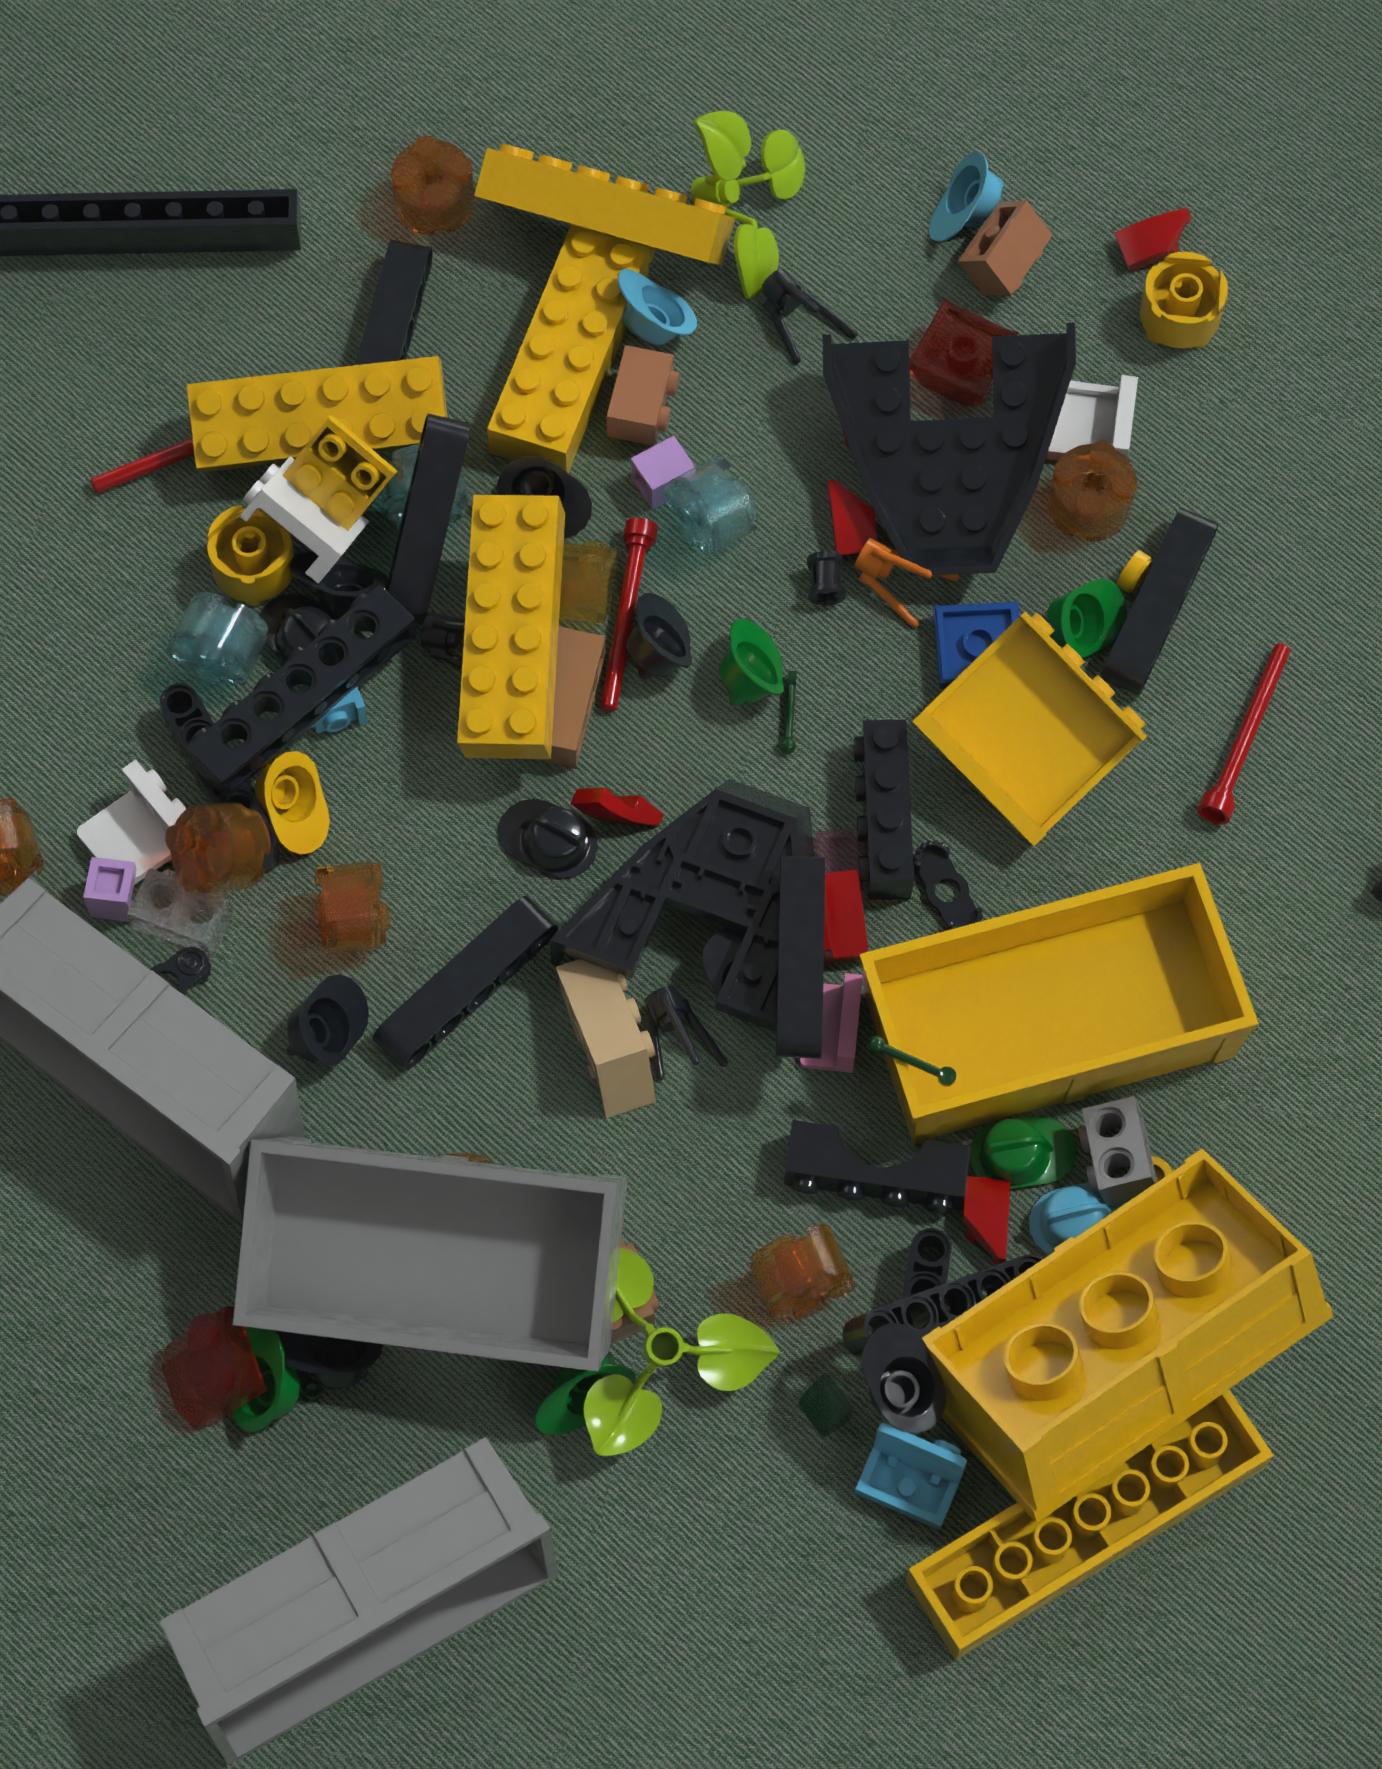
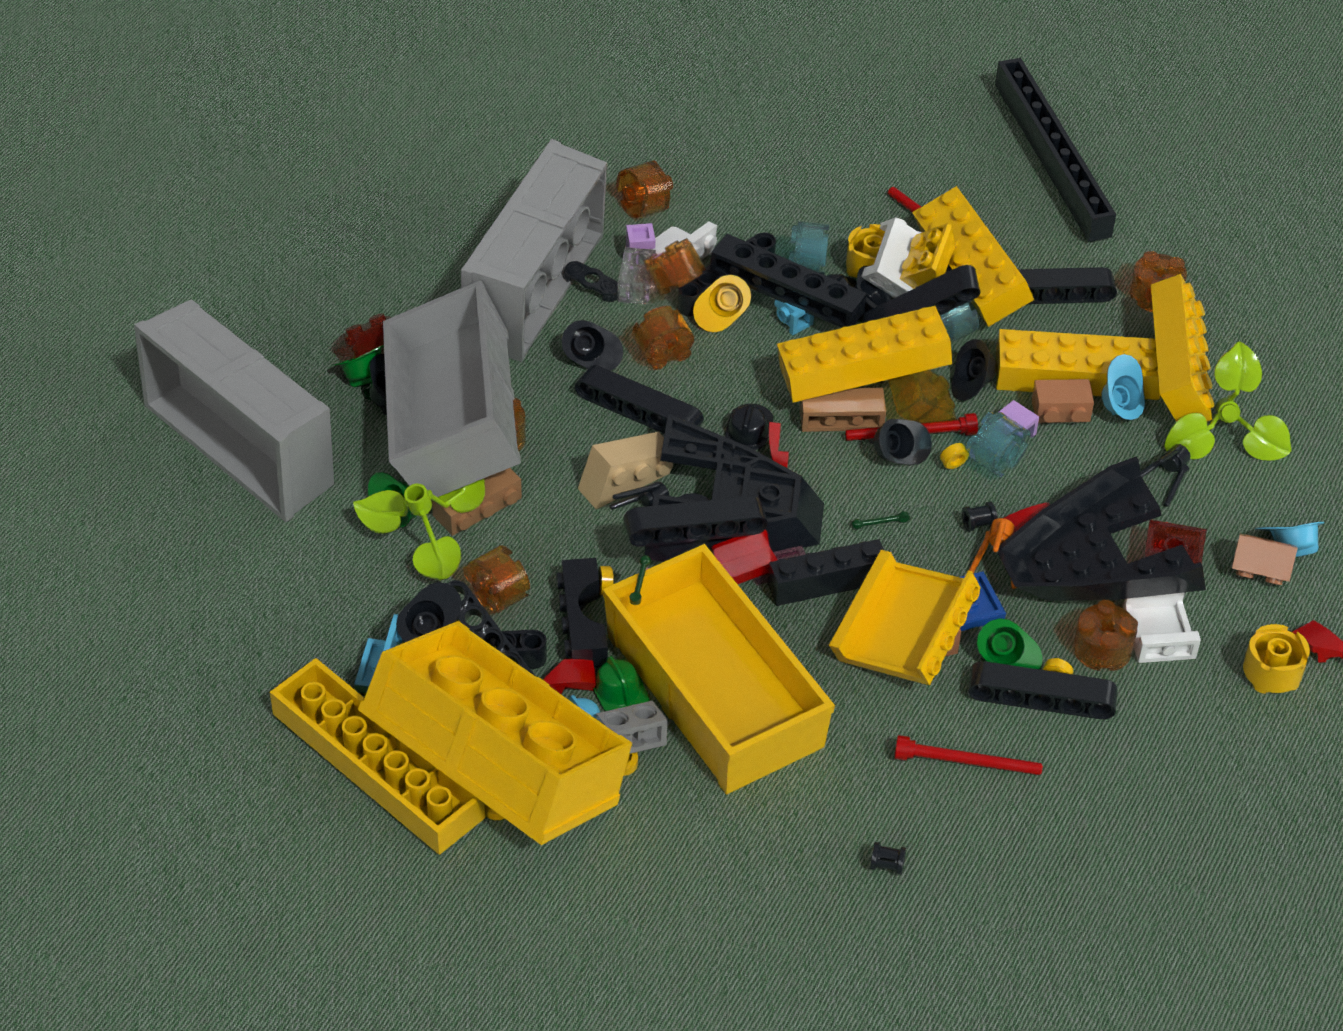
camera: 75 degrees right, 20 degrees down
(701, 573) = (954, 456): none -> yellow tile
(751, 664) = (904, 488): green piece -> none
(821, 1114) = (605, 577): none -> yellow tile
(935, 866) = (801, 611): black piece -> none

